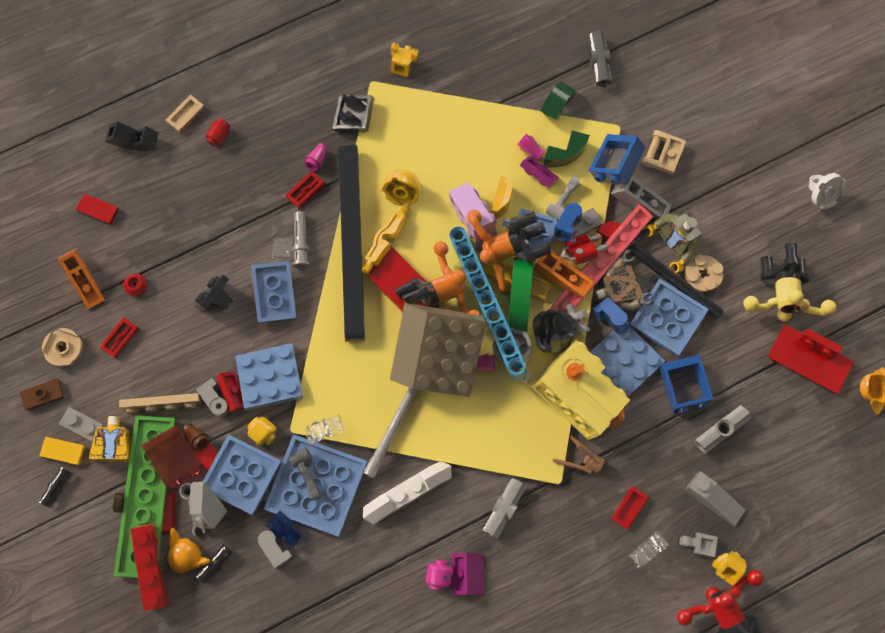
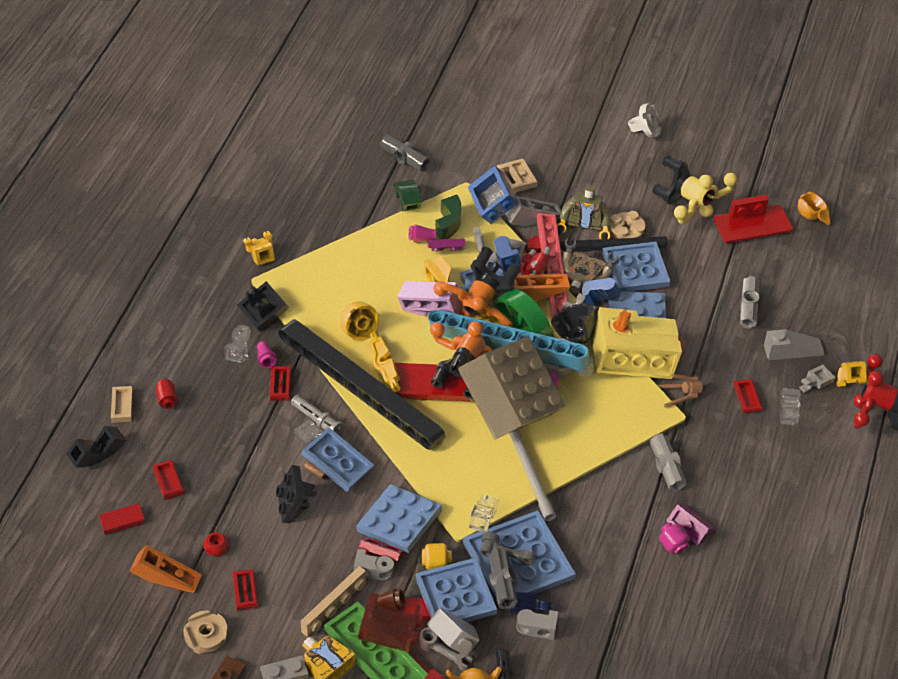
camera: 45 degrees left, 25 degrees down
(155, 203) = (168, 479): none -> red tile
(277, 496) = (503, 579): none -> dark grey piece
(314, 128) = (238, 349): none -> clear leg
(407, 492) = (589, 508): white brick -> none
(682, 364) = (699, 284): blue window -> none

